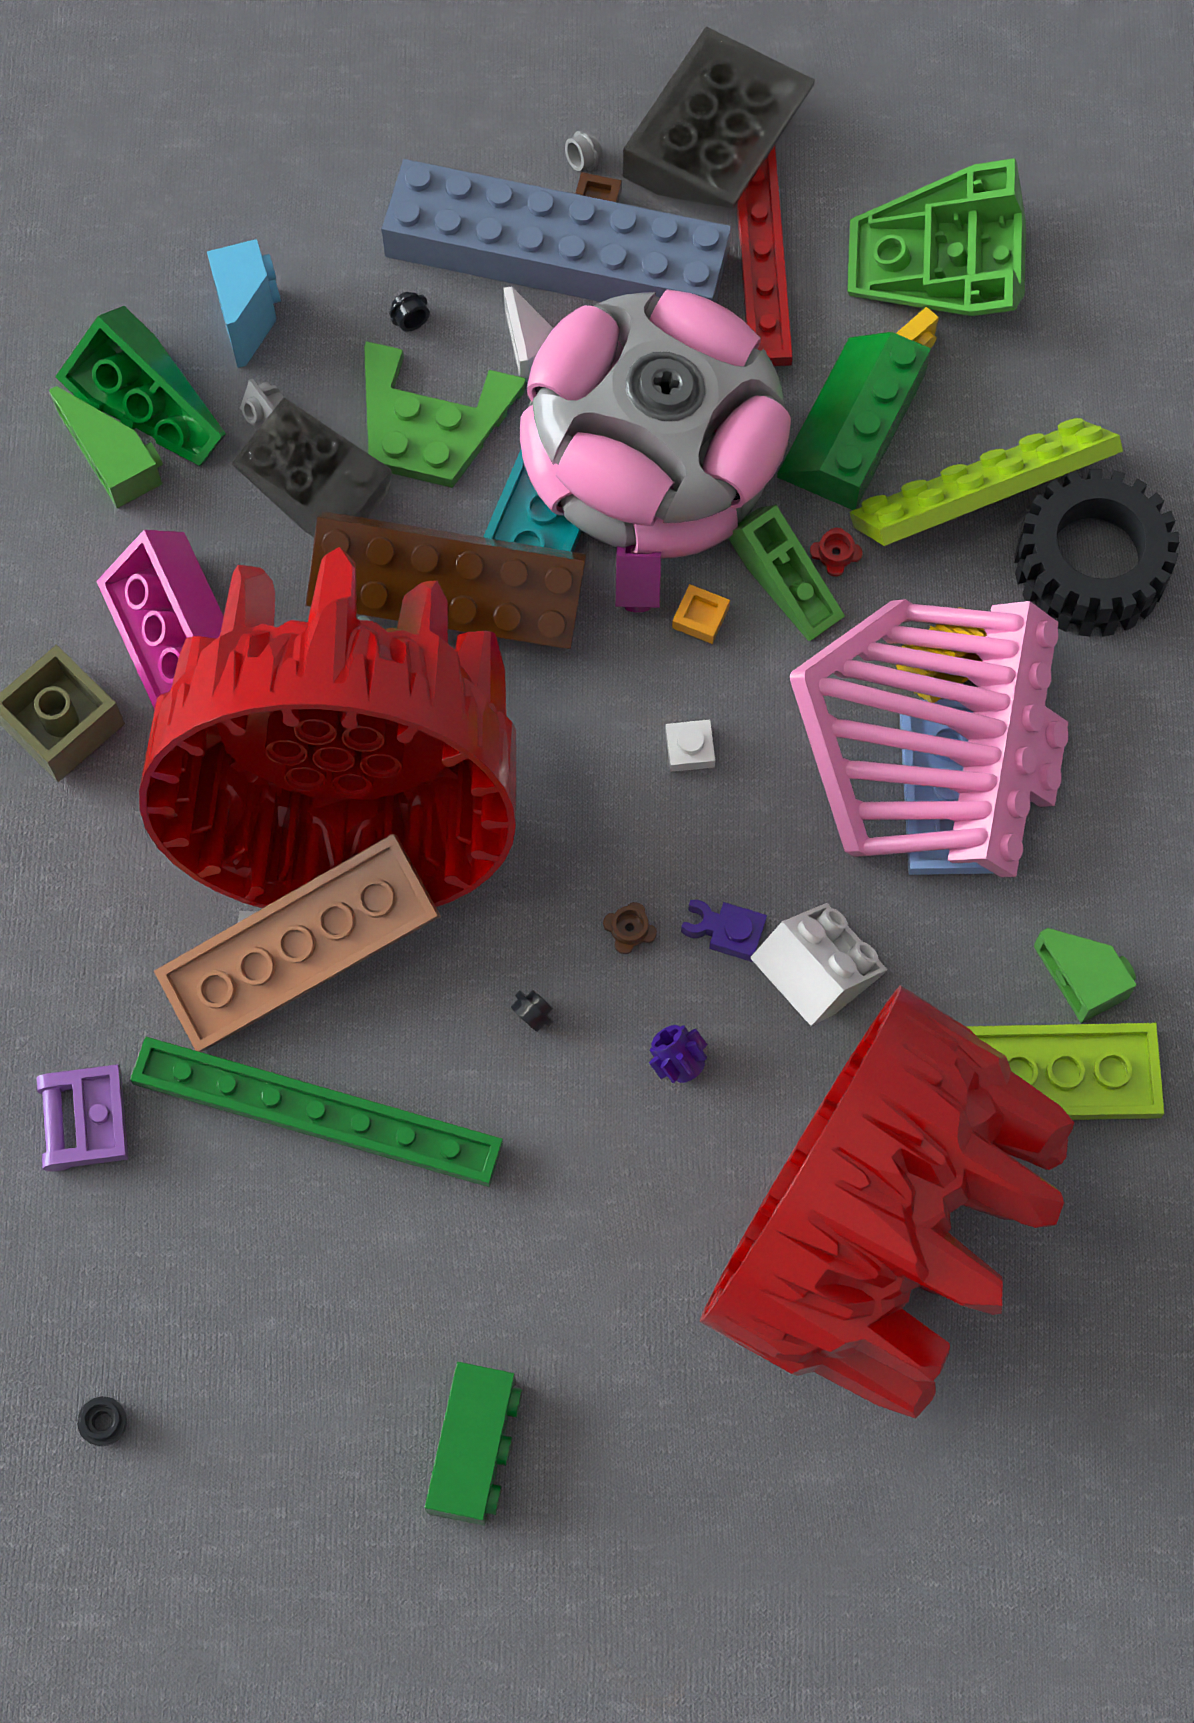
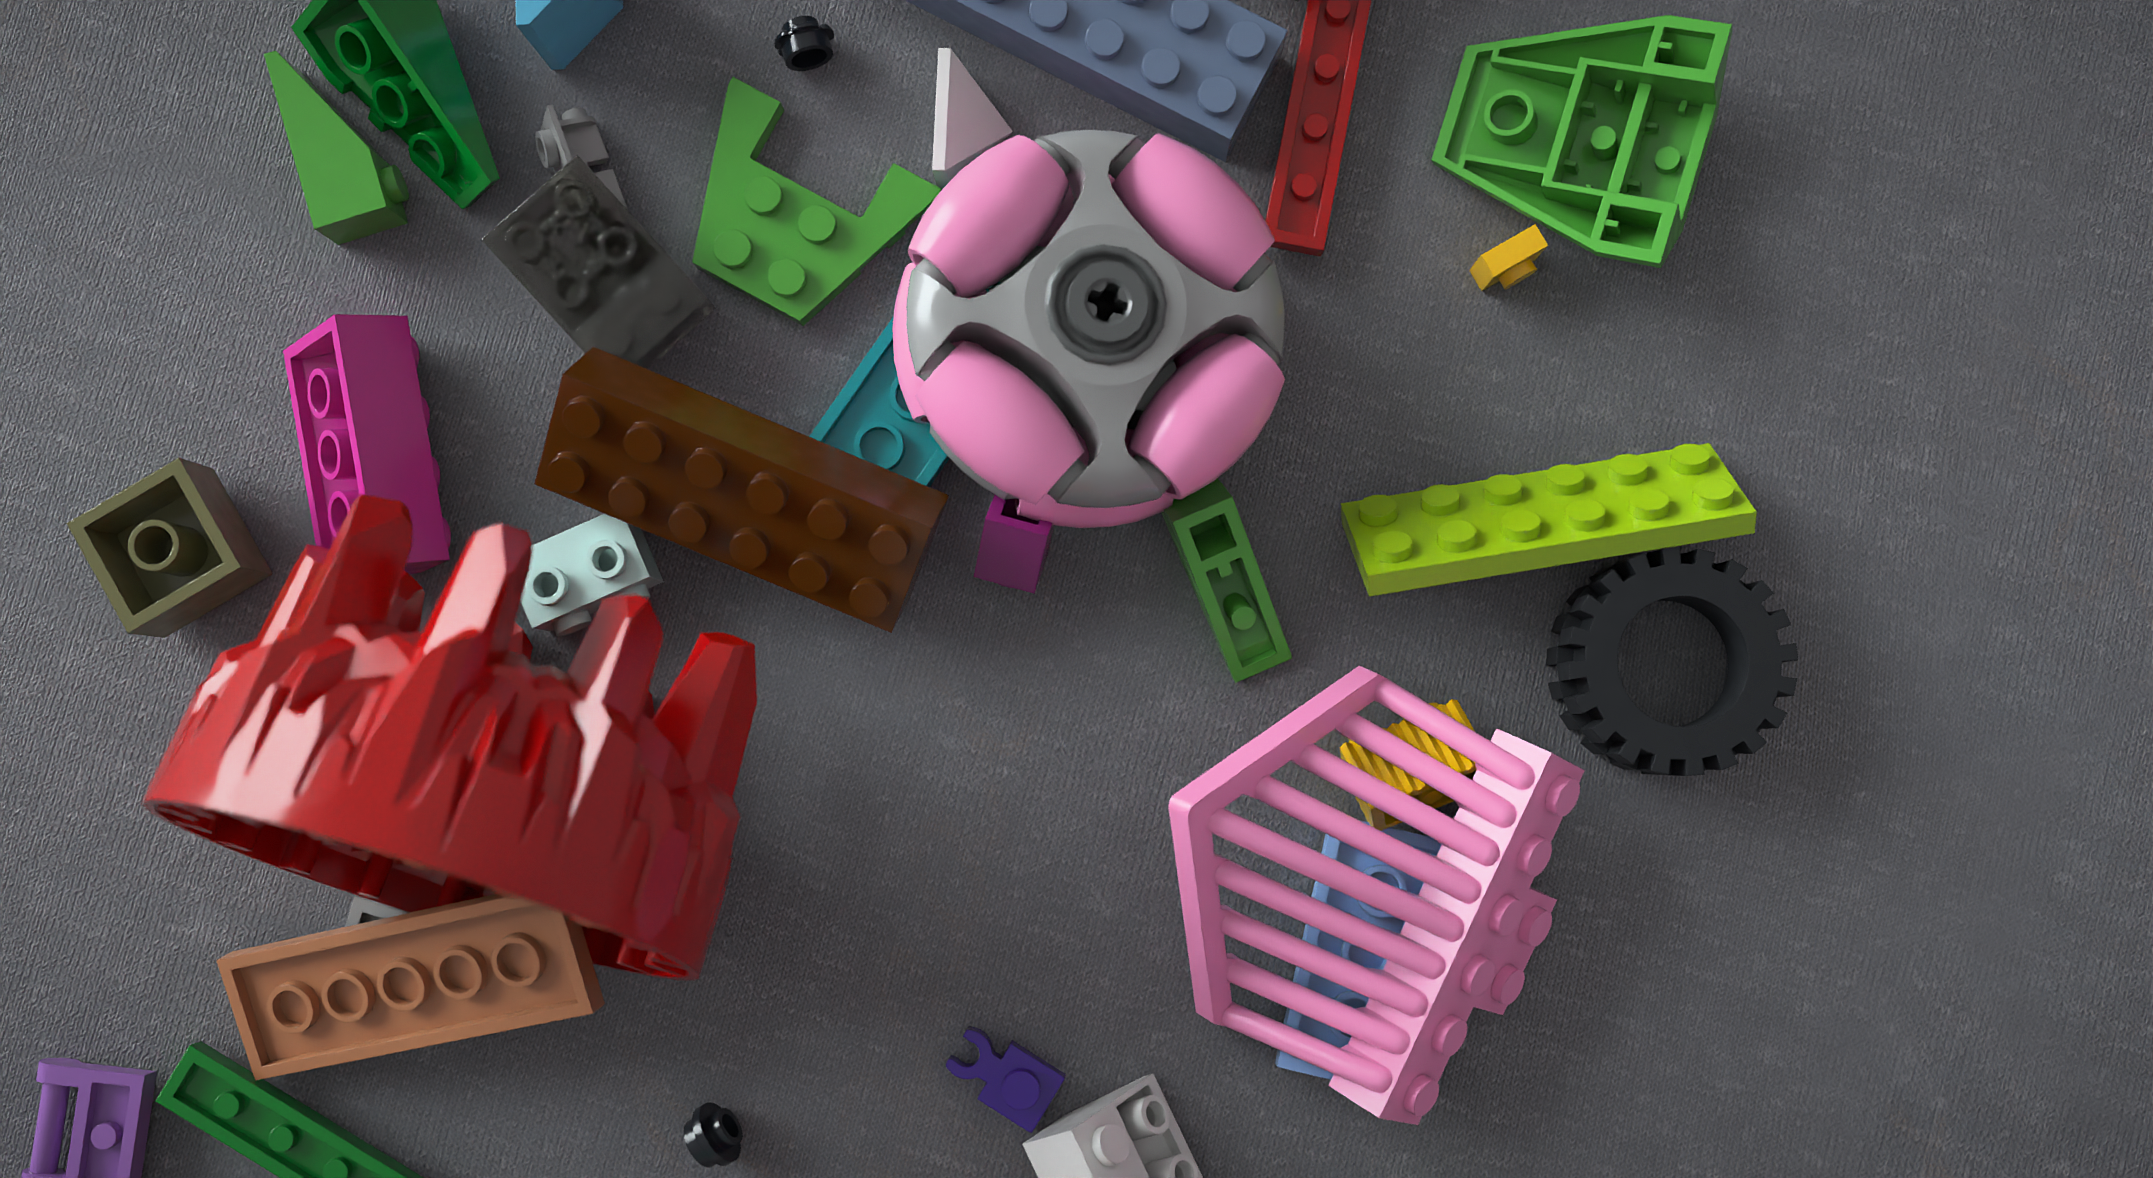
camera: 20 degrees right, 15 degrees up
(633, 915) = (867, 1061): reddish brown plate -> none
(690, 745) = (1027, 798): white plate -> none
(701, 614) = (1092, 610): light orange plate -> none
(836, 539) = (1310, 542): red plate -> none
(856, 417) = (1389, 360): green slope -> none

